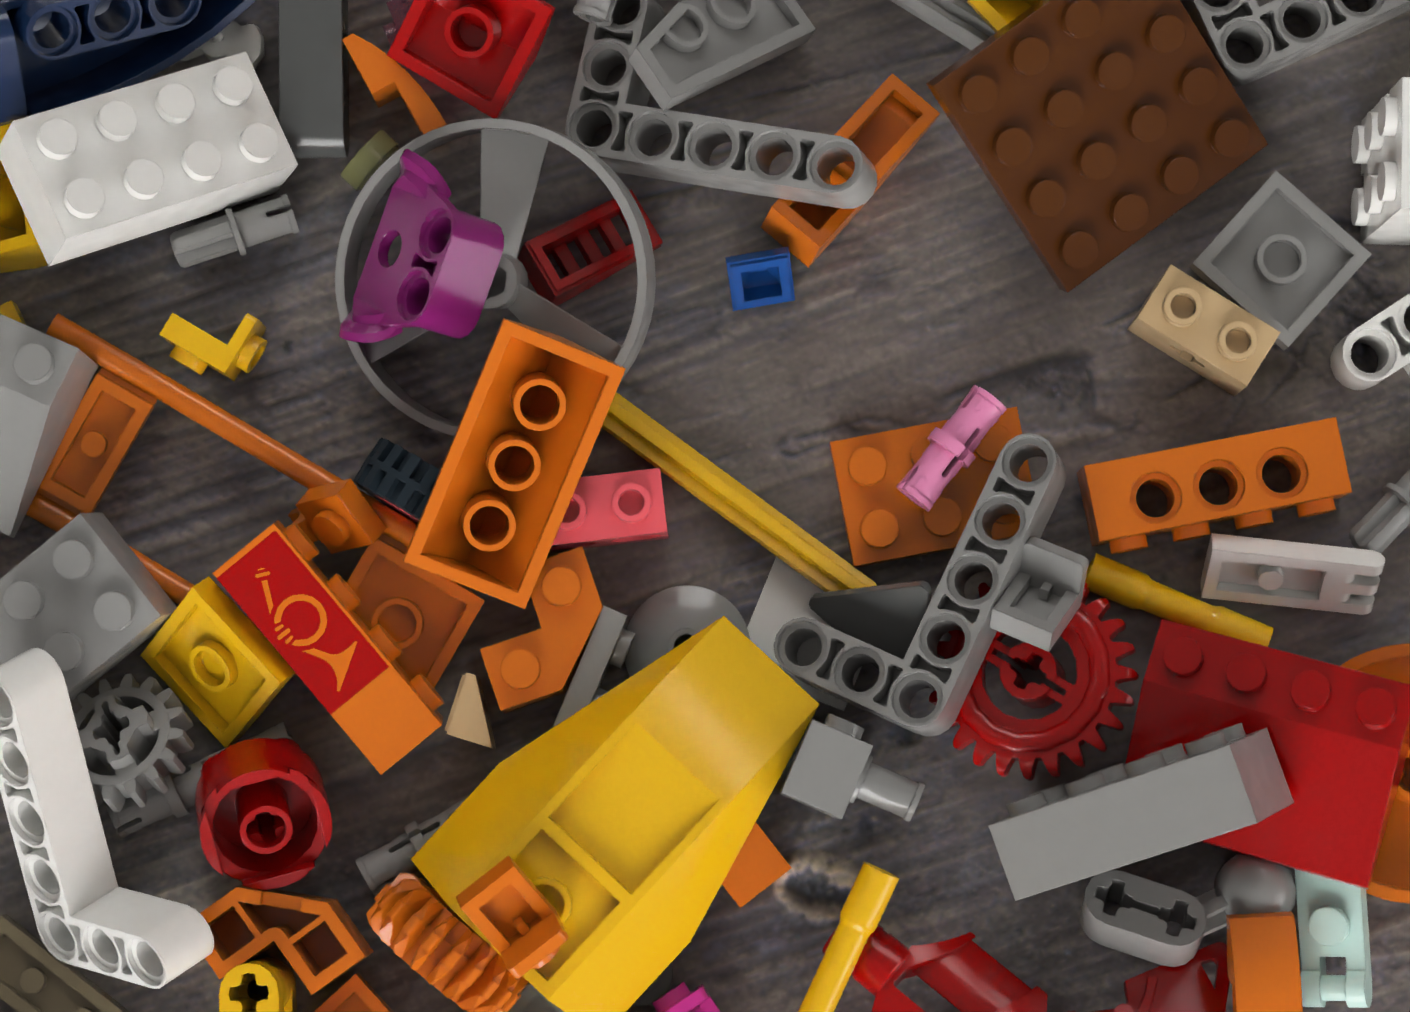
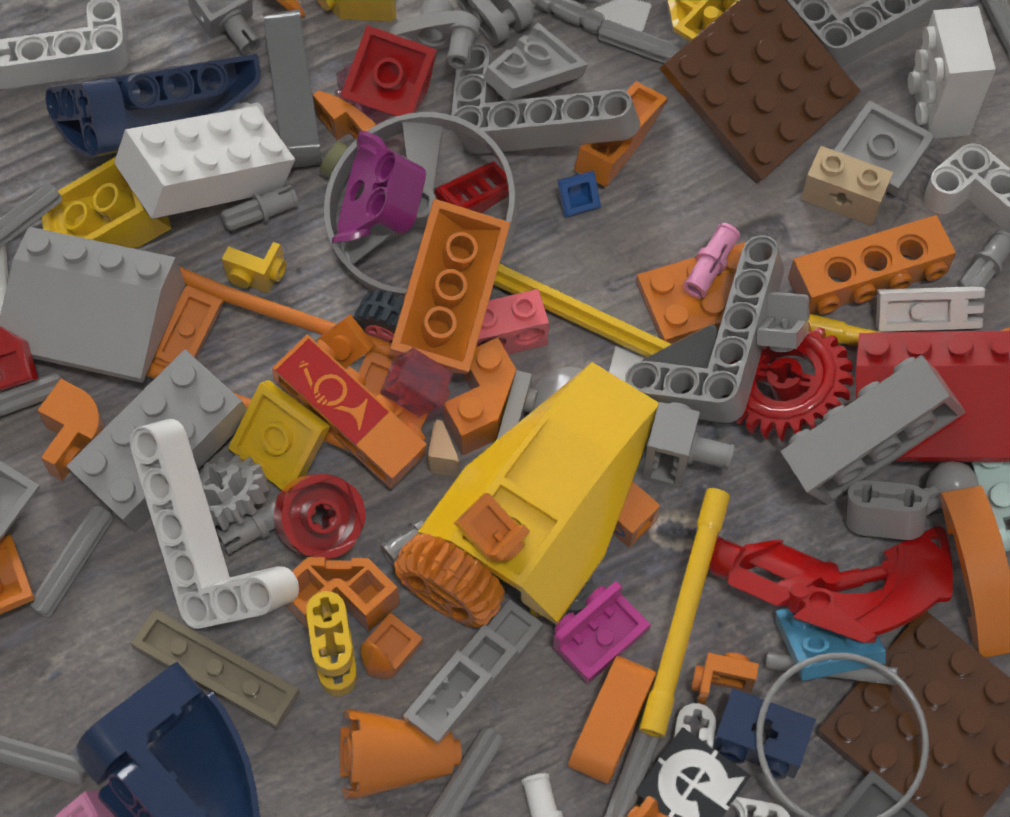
camera: 10 degrees left, 20 degrees down
(440, 617) = (417, 382): none -> clear pink brick

